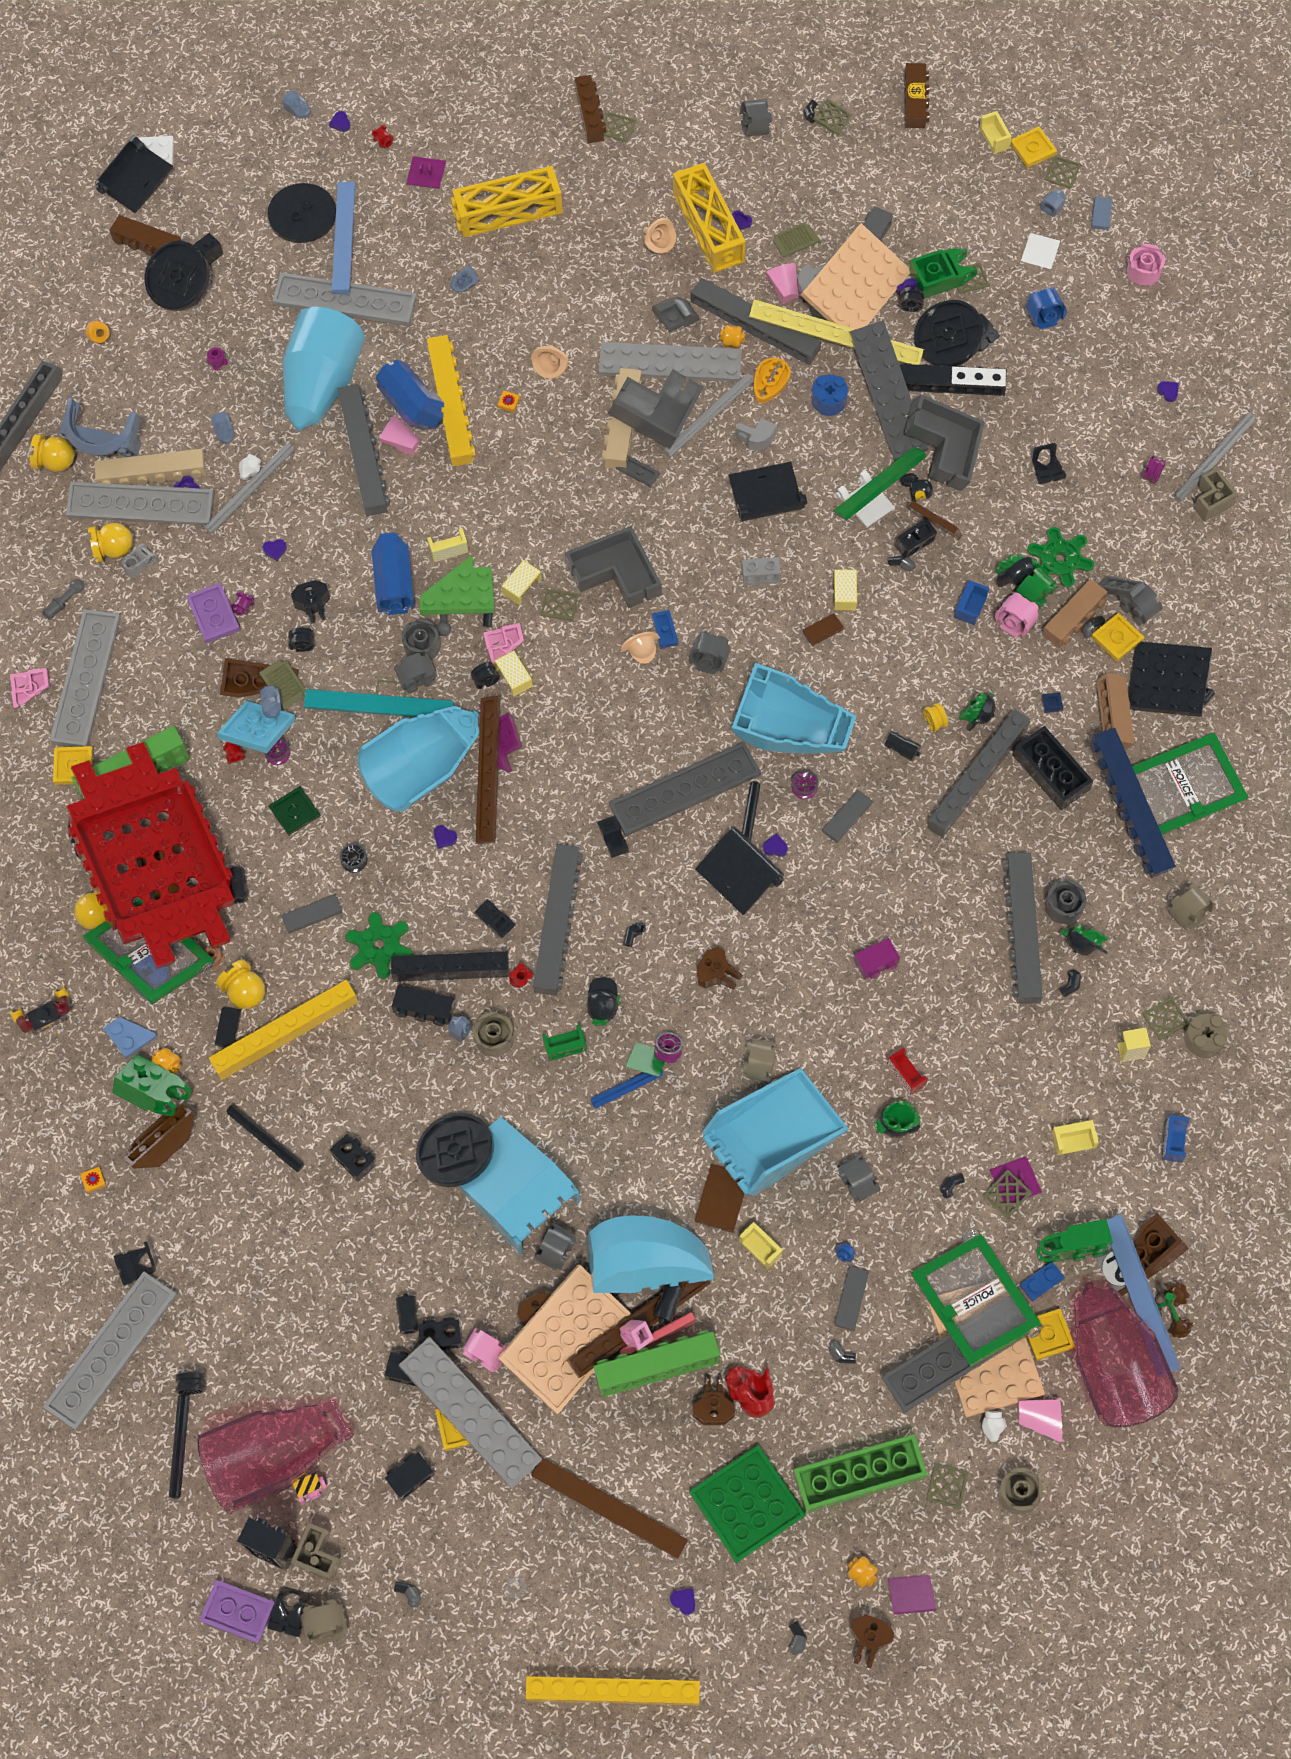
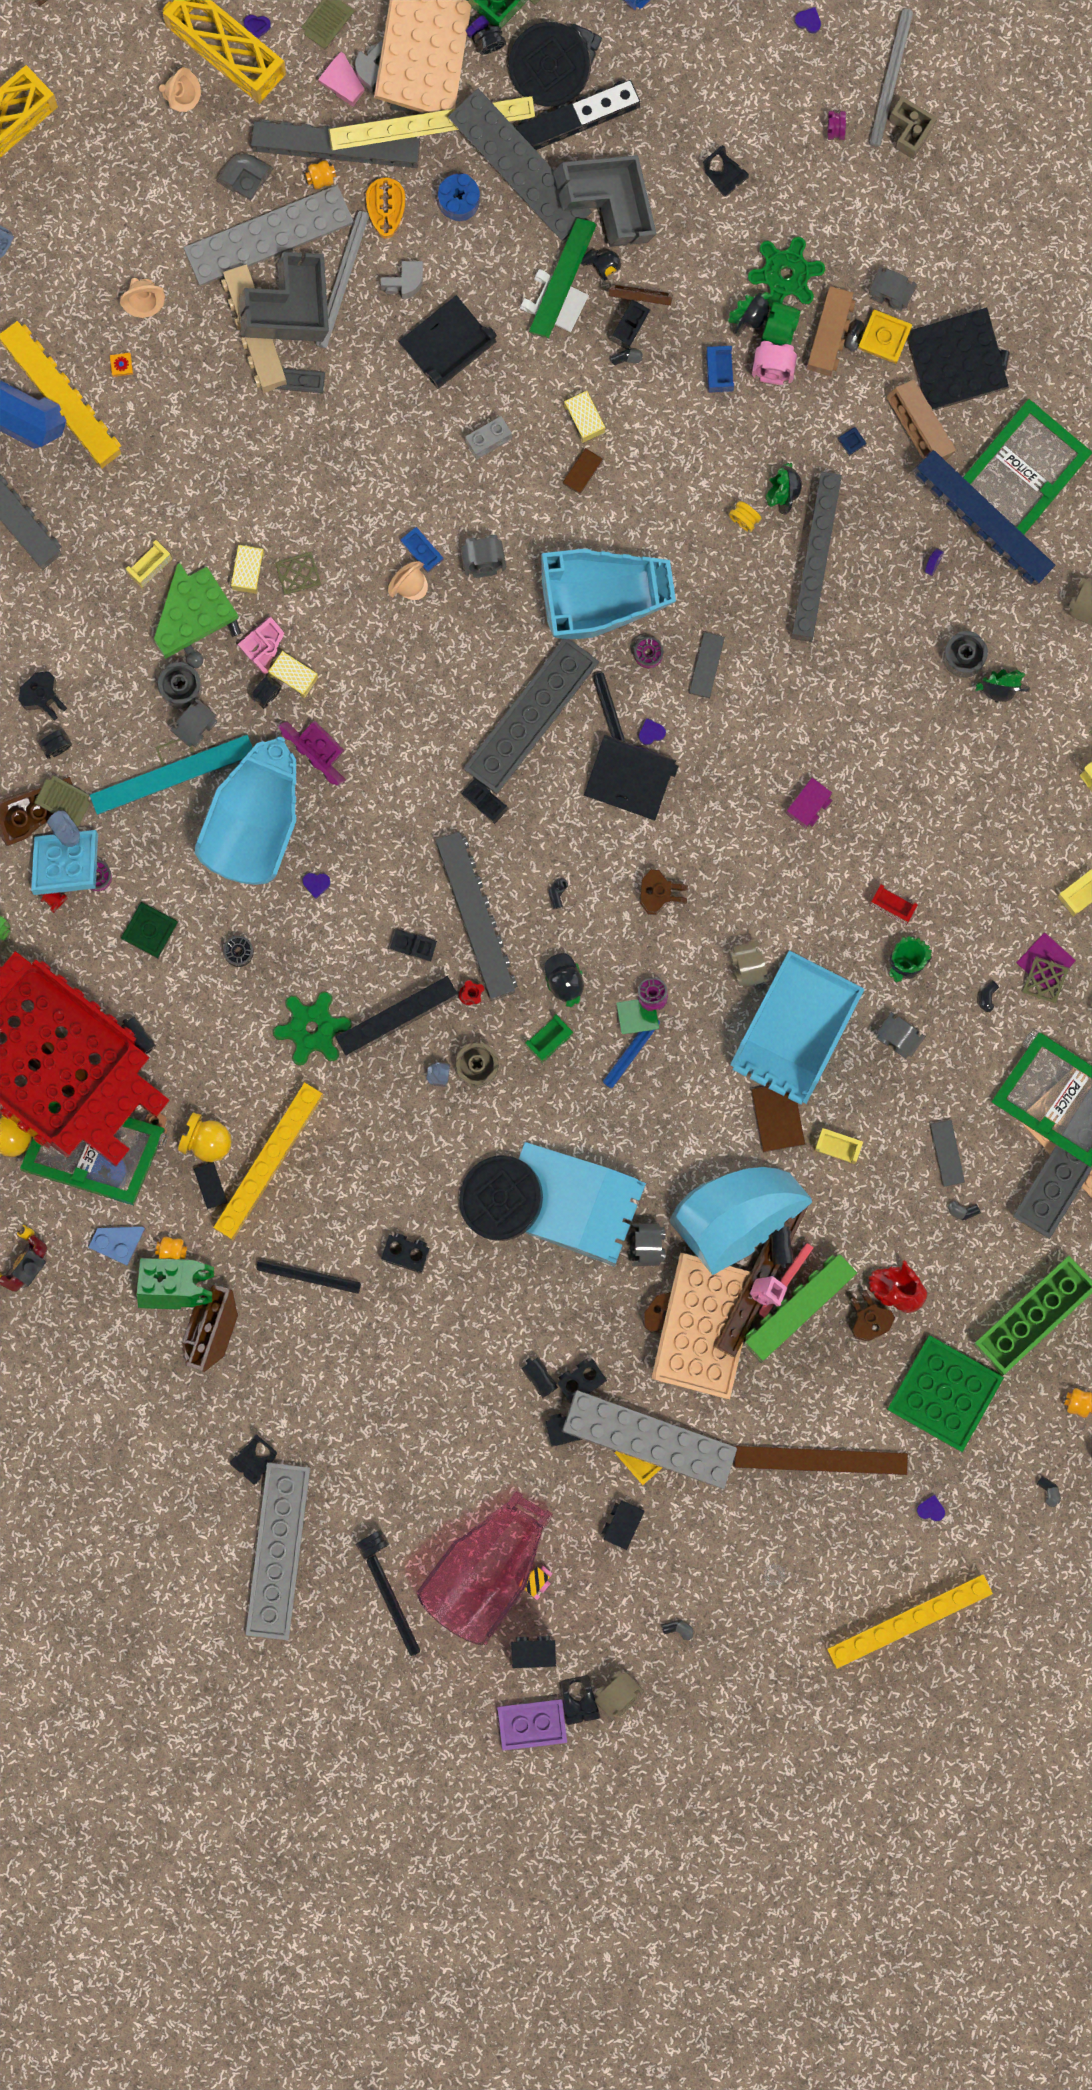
camera: 30 degrees left, 15 degrees up
(93, 1179) = (165, 1399): light orange tile -> none
(310, 1554) = (574, 1644): dark tan brick -> none
(311, 914) = (228, 1029): dark grey tile -> none
(392, 575) = (111, 627): blue brick -> none
(399, 436) = (28, 461): bright pink slope -> none
(423, 1005) = (391, 1069): black brick -> none
(484, 1348) = (632, 1374): bright pink brick -> none
(488, 770) = (324, 793): reddish brown tile -> none
(616, 558) = (337, 494): dark grey piece -> none
(845, 1252) = (920, 1112): blue plate -> none
(903, 746) = (729, 563): black piece -> none
(1023, 928) = (936, 700): dark grey brick -> none
(1052, 768) = (887, 516): black brick -> none
(1074, 821) = (933, 562): none -> dark purple tile
(1074, 983) = (1010, 733): black arm -> none
(1121, 586) = (865, 281): dark grey tile -> none

